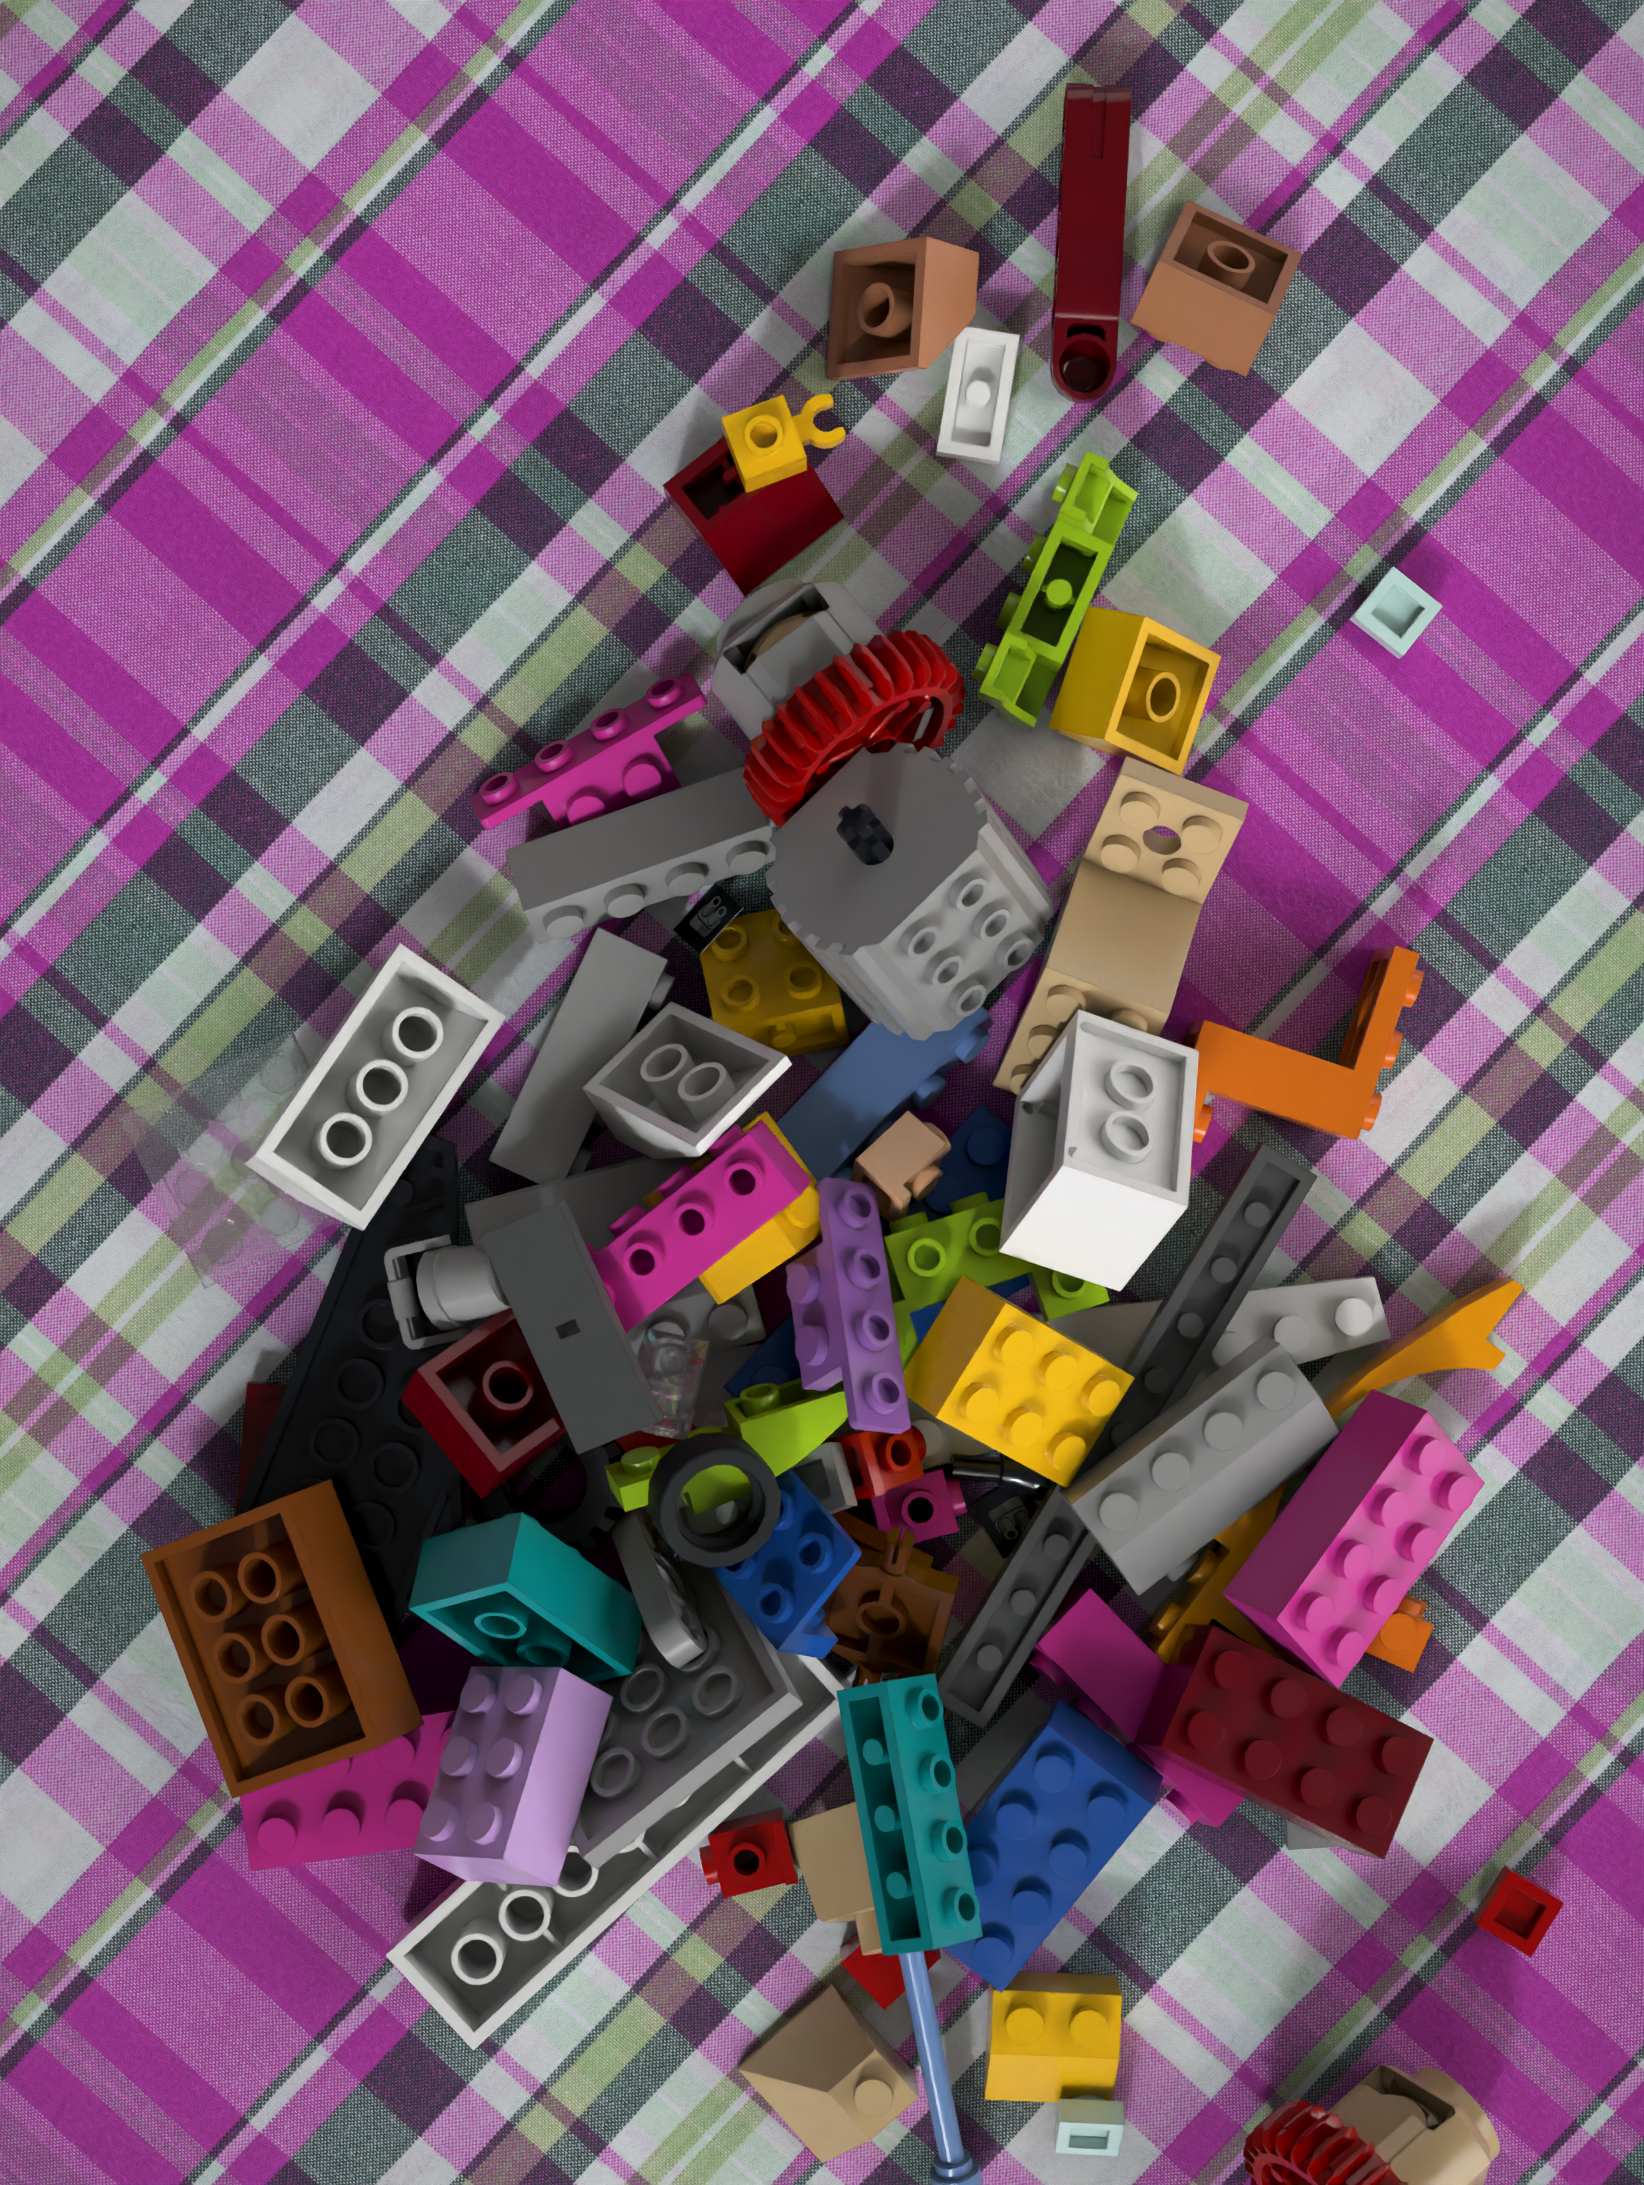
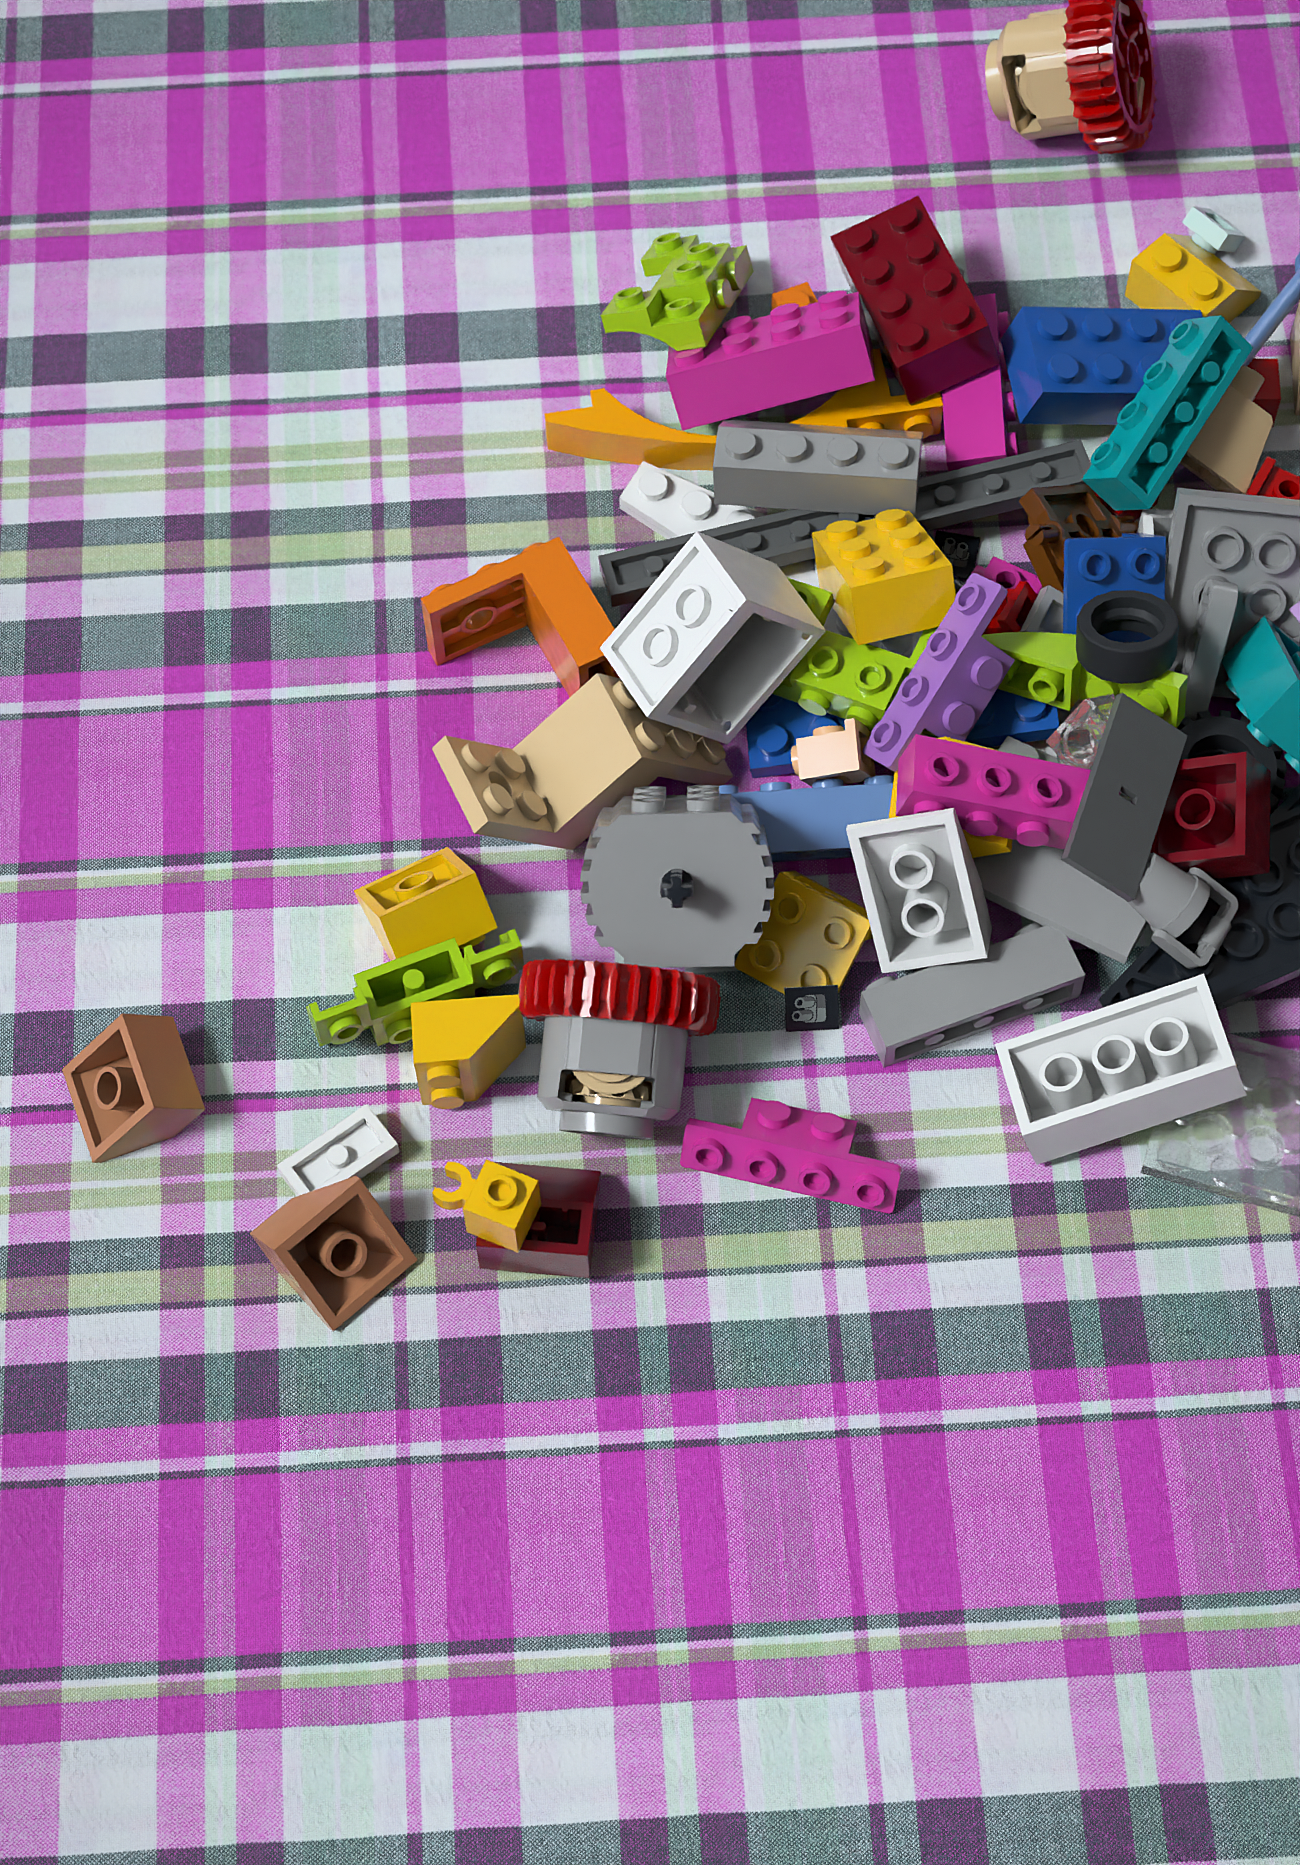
camera: 130 degrees left, 25 degrees down
(640, 856) = (817, 1069): light grey brick -> none
(963, 570) = (464, 1046): none -> yellow slope
(1089, 239) = (172, 1187): dark red piece -> none
(1396, 612) = (230, 819): light aqua plate -> none
(1506, 1548) = (688, 298): none -> lime bracket
(1517, 1911) = (867, 149): red plate -> none

